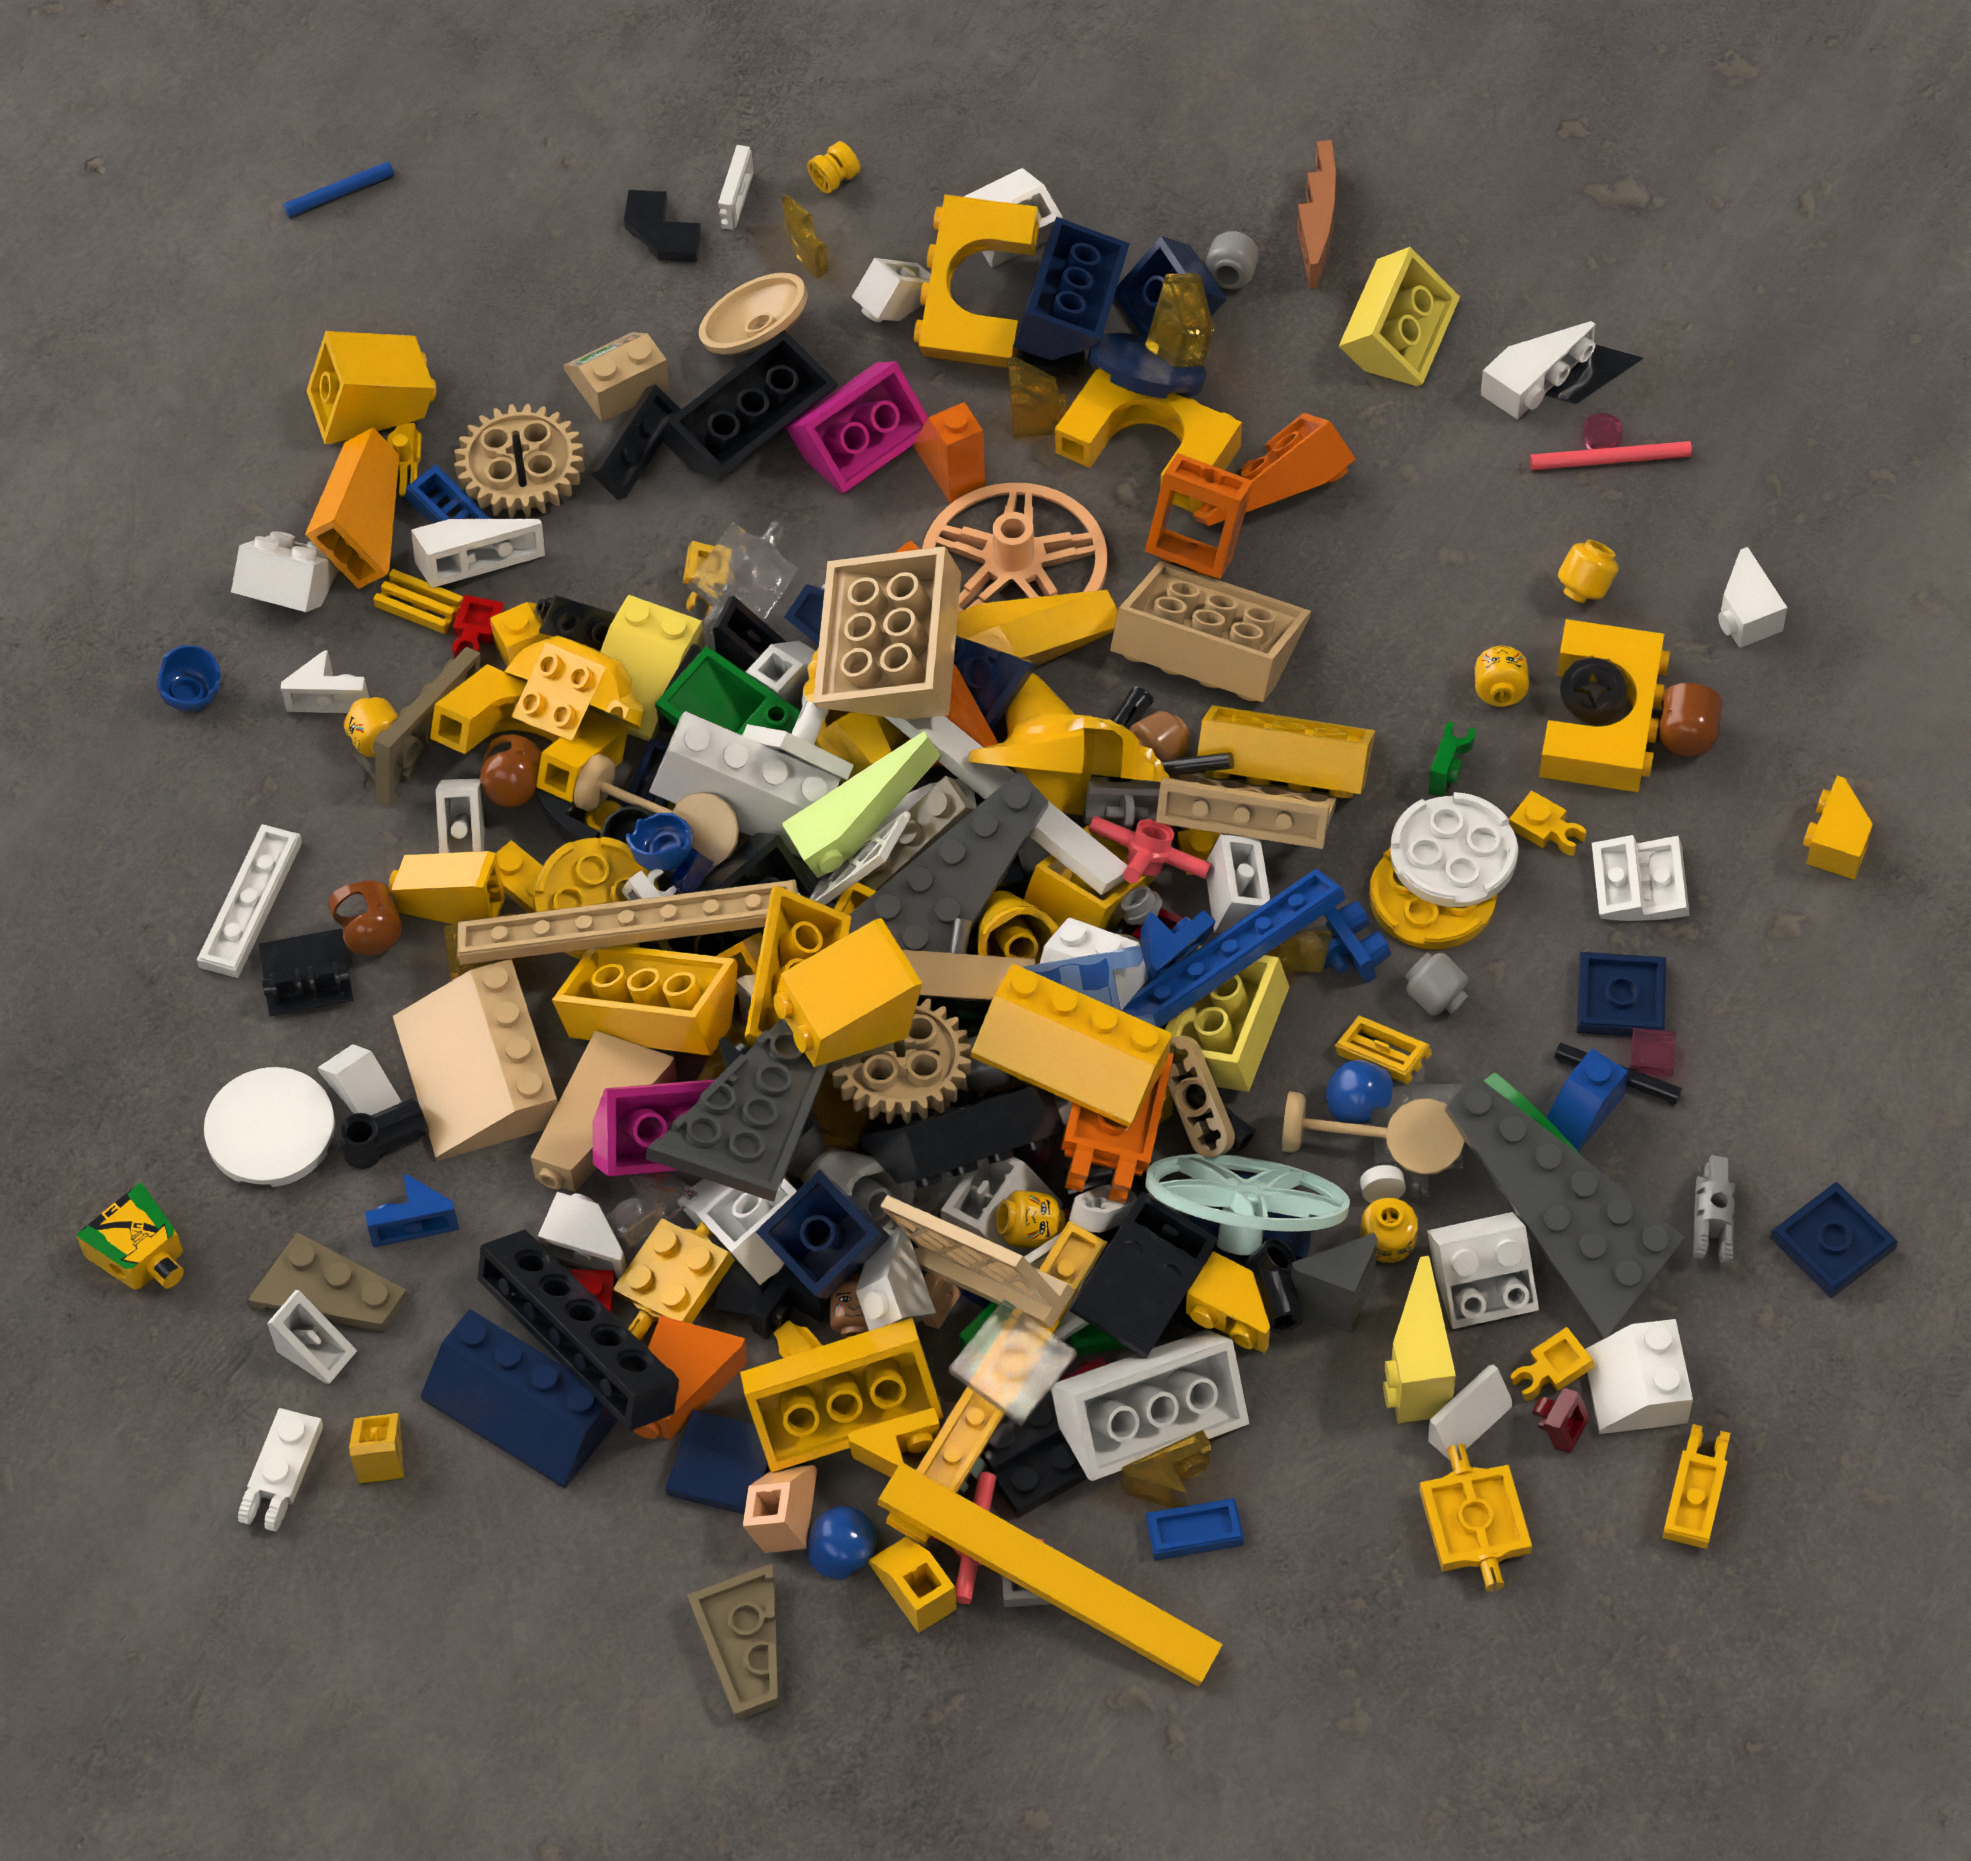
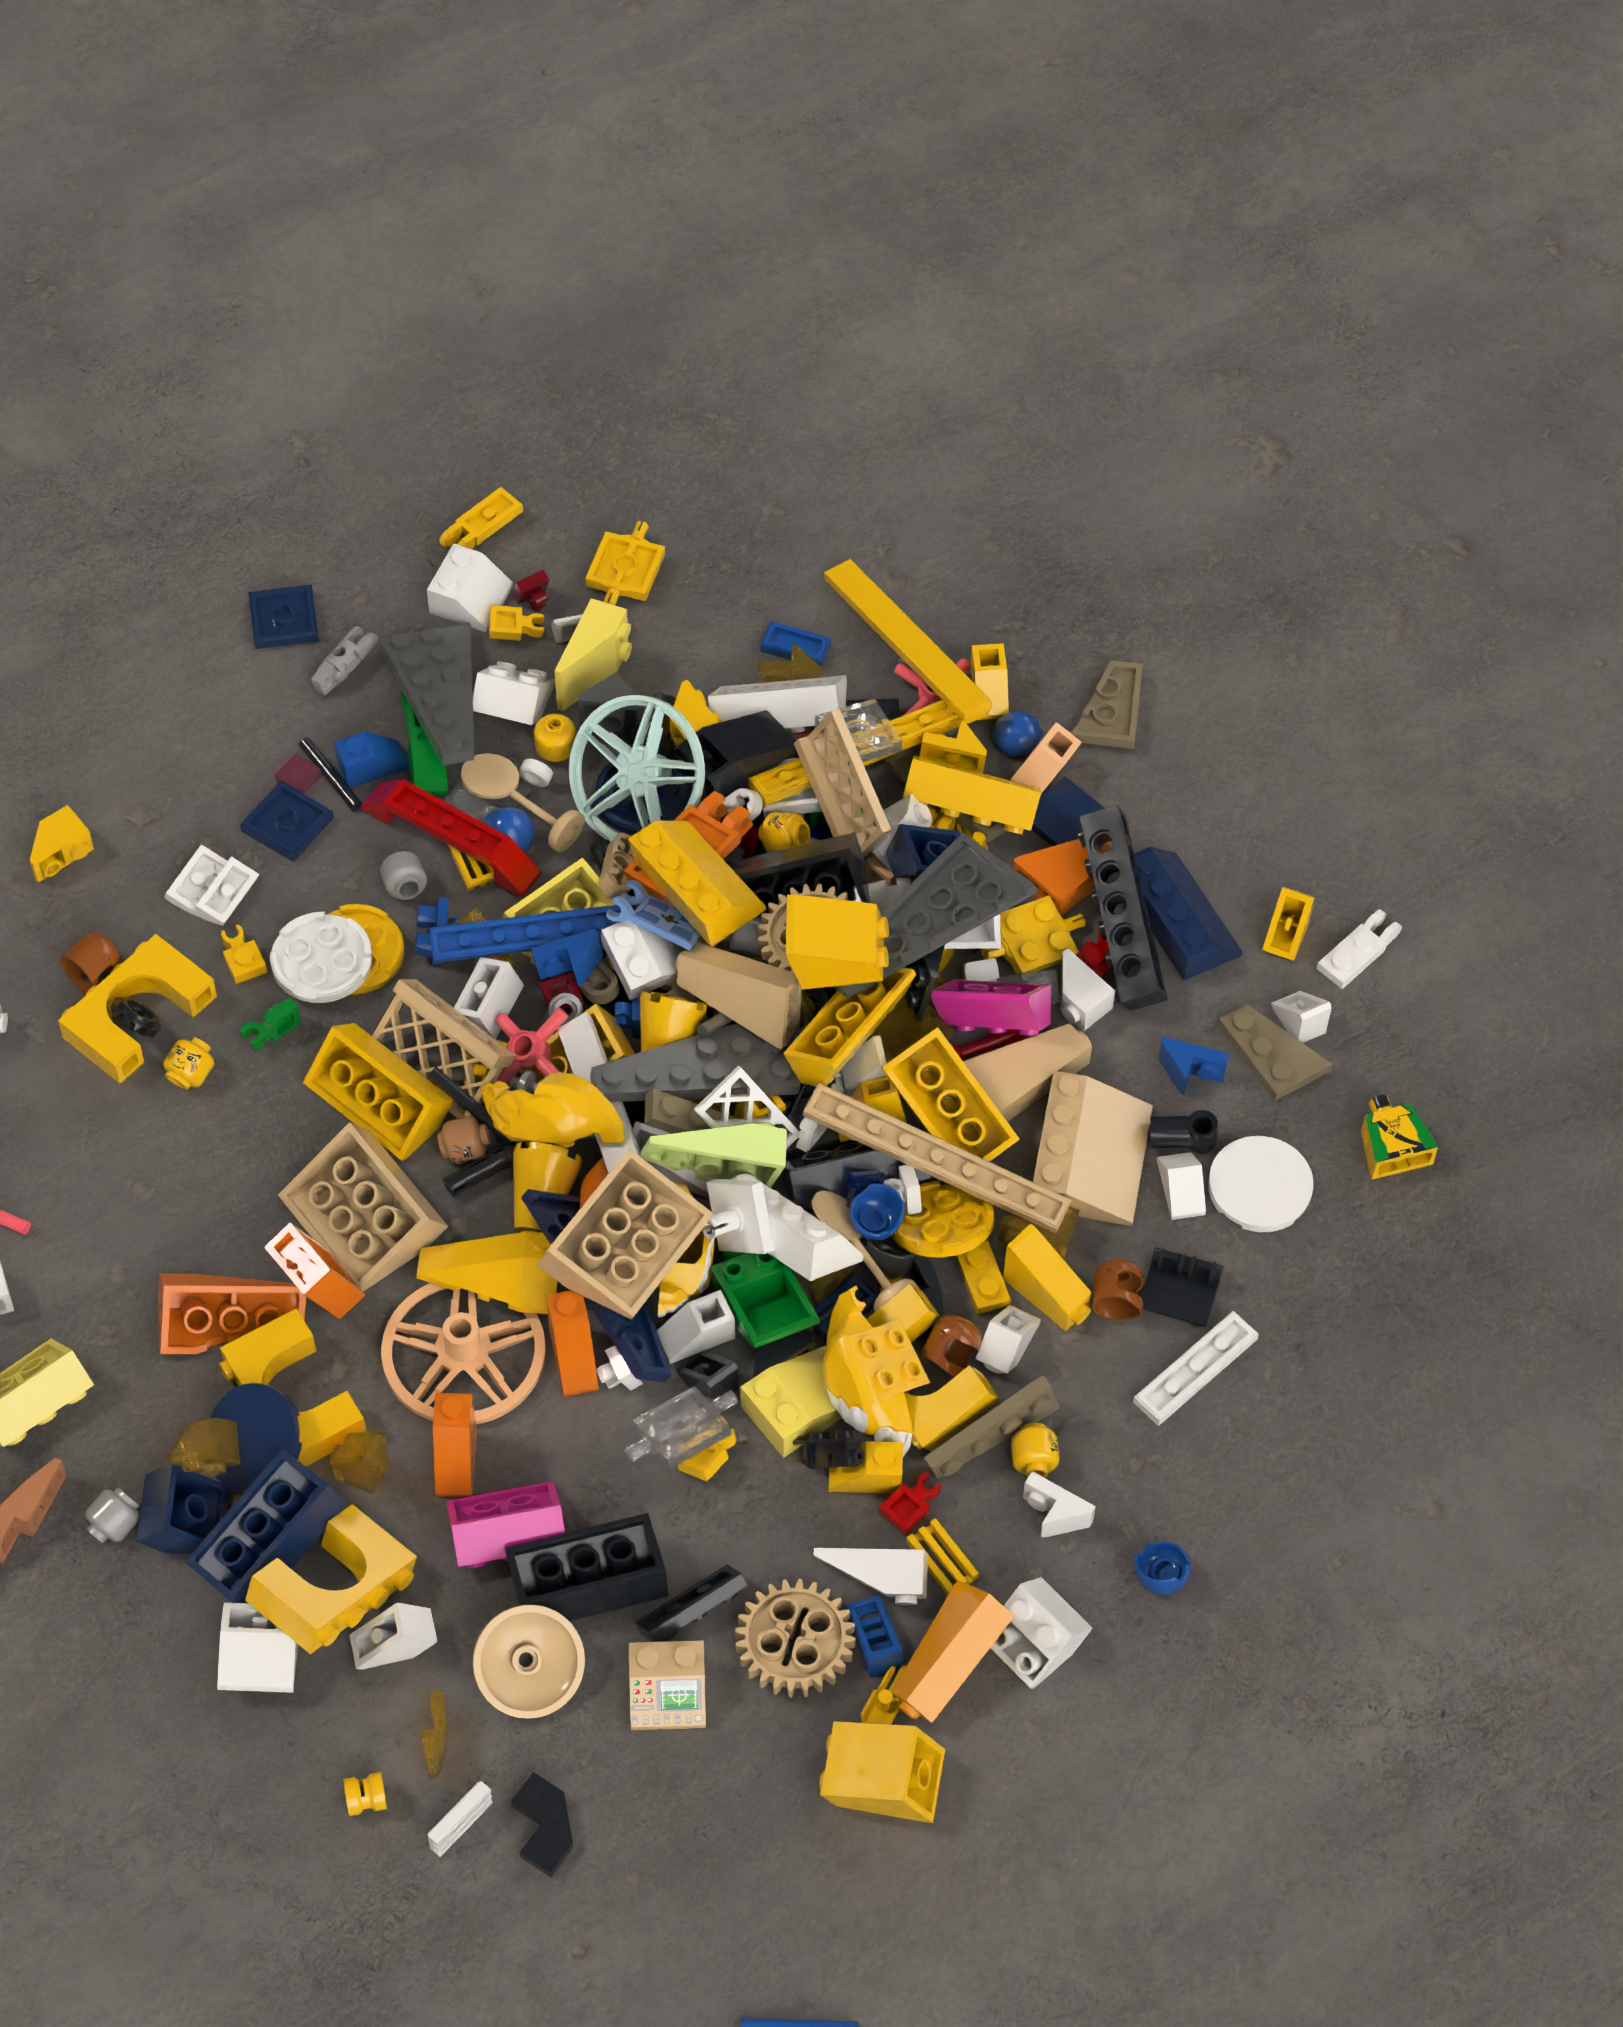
camera: 155 degrees left, 0 degrees up
(1421, 1040) = (509, 863): none -> red slope
(1588, 571) = (65, 1103): yellow head -> none

